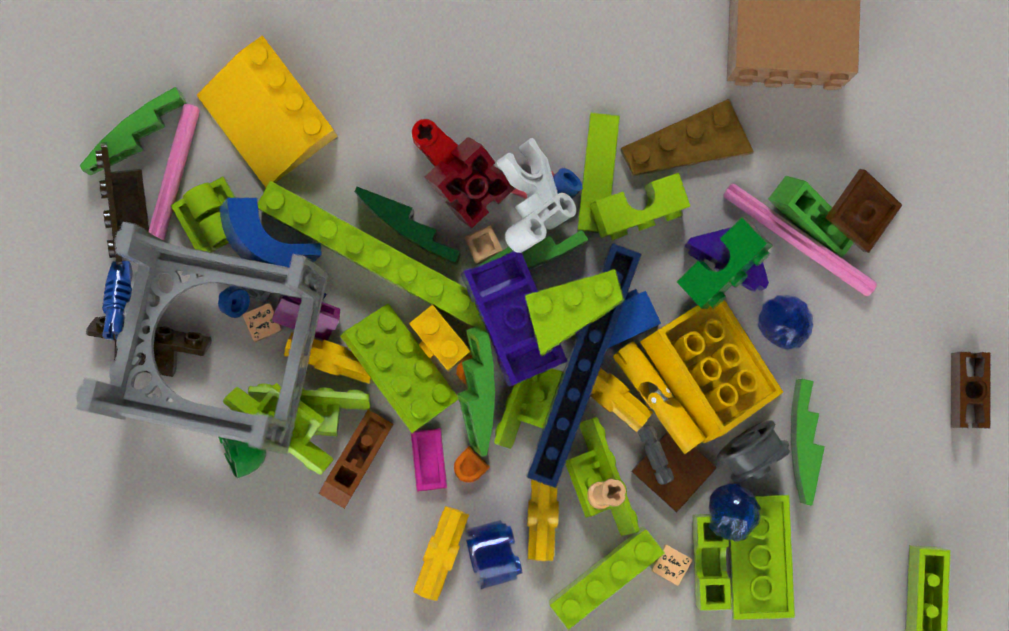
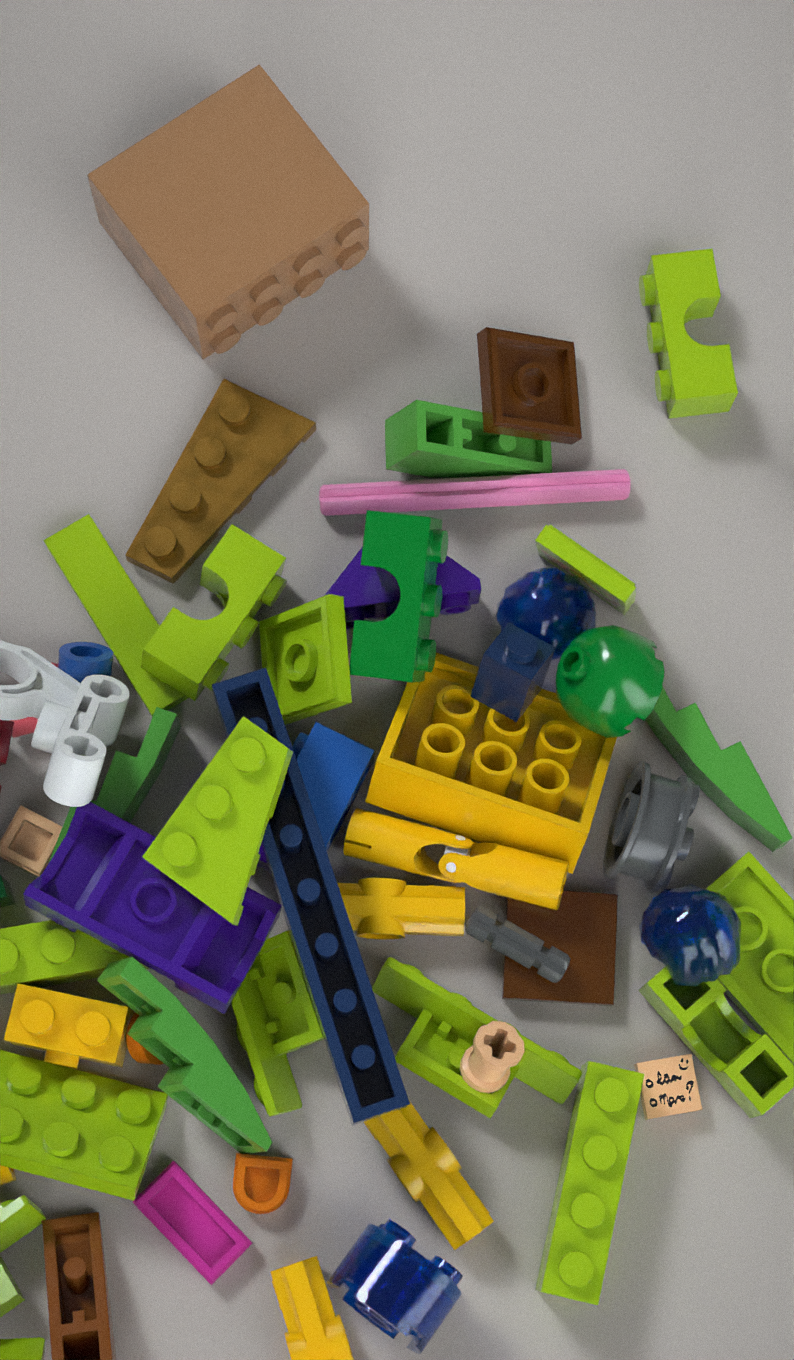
camera: 45 degrees left, 10 degrees down
(664, 259) = (307, 658): none -> lime tile
(749, 336) = (512, 671): none -> dark blue brick
(789, 374) = (609, 679): none -> green cylinder
(820, 316) = (589, 569): none -> lime tile
(943, 263) = (691, 375): none -> lime arch

